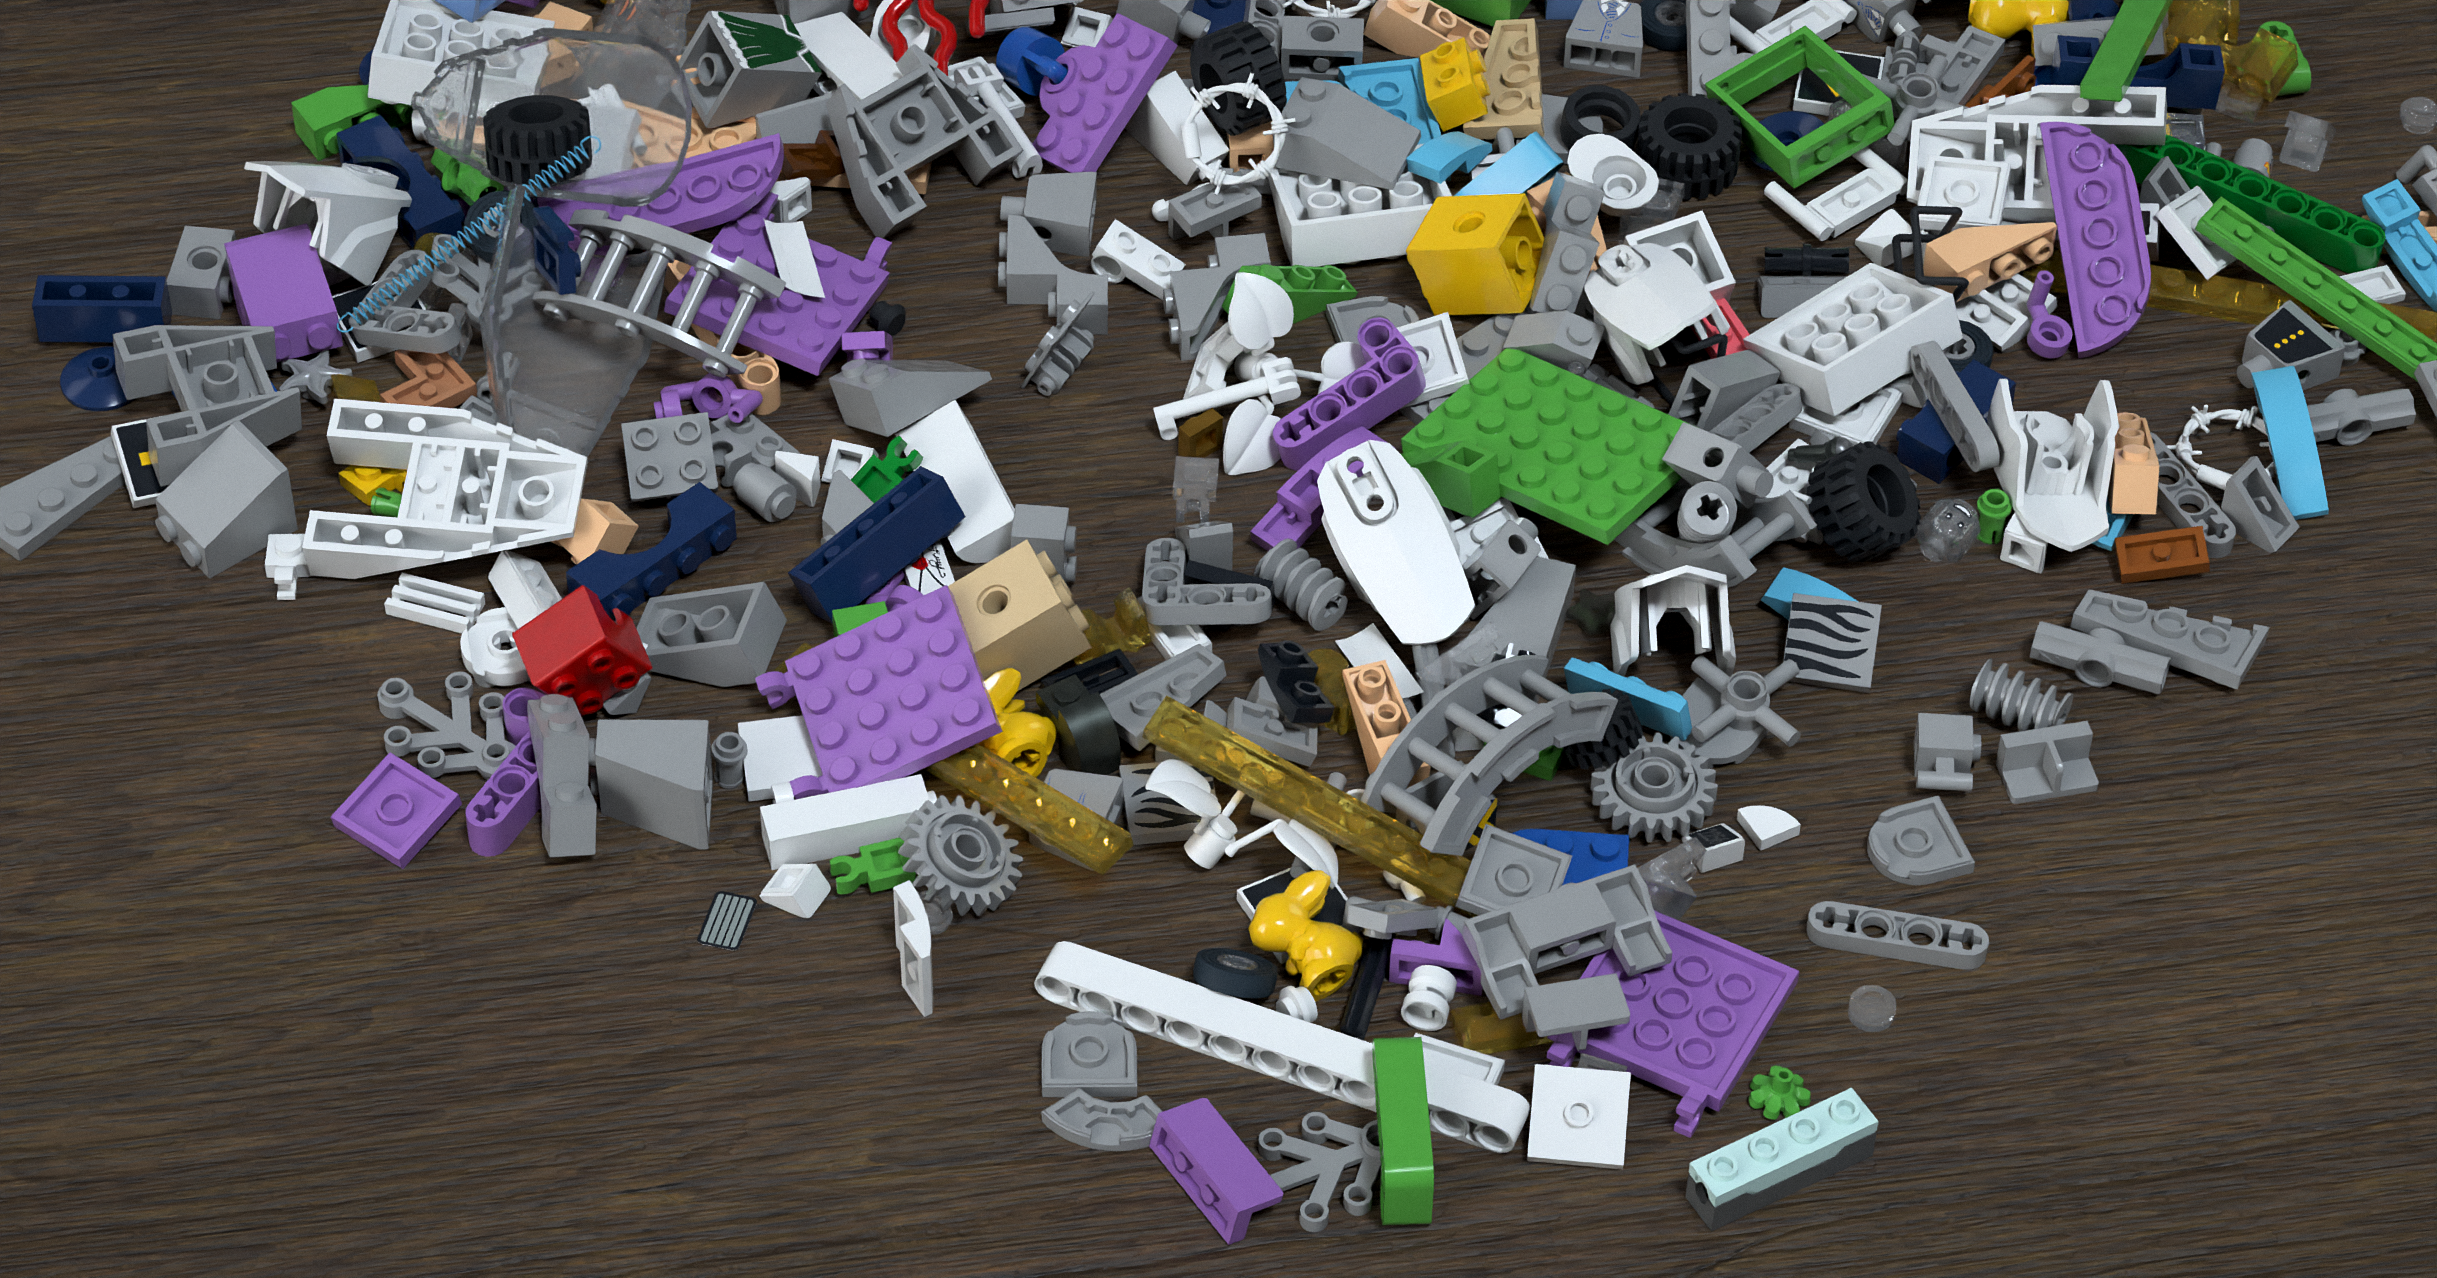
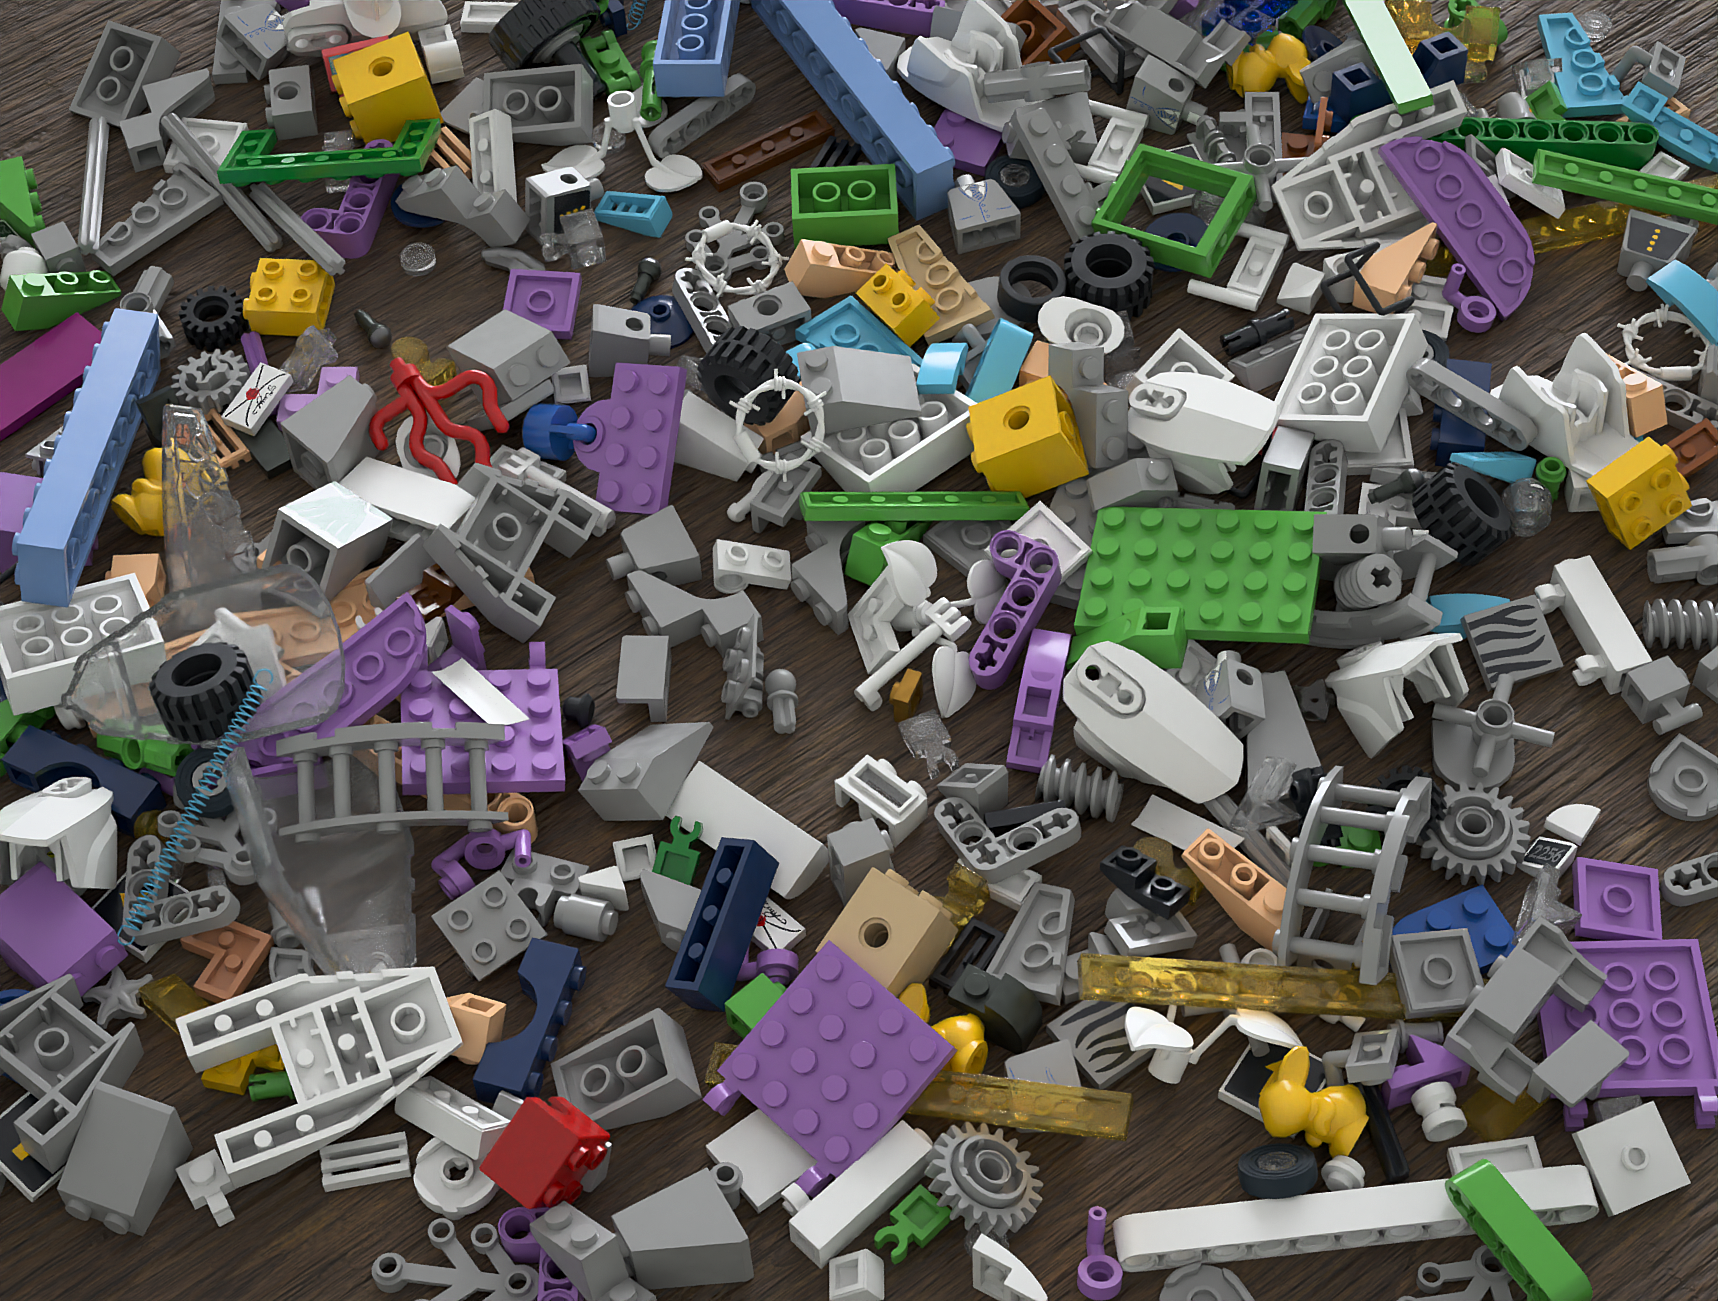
camera: 25 degrees left, 5 degrees up
(552, 253) = (285, 788): dark blue plate -> none
(819, 221) = (465, 642): none -> medium lavender bracket
(968, 312) = (645, 673): none -> light grey panel
(1010, 982) = (1098, 1274): none -> medium lavender plate
(1081, 389) = (782, 700): none -> light grey axle
(1112, 512) = (883, 796): none -> white window
(1322, 267) = (912, 506): none -> bright green tile
(1655, 708) = (1366, 765): medium azure tile -> none
(1750, 906) = (1616, 901): none -> medium lavender plate
(1936, 659) = (1596, 621): none -> white brick
(1941, 476) = (1500, 465): none -> medium azure slope
(1970, 184) = (1345, 226): white tile -> none
(2063, 558) = (1640, 492): none -> yellow brick
(2295, 166) = (1547, 102): none -> bright green plate
(2361, 146) = (1584, 80): none -> medium azure wing

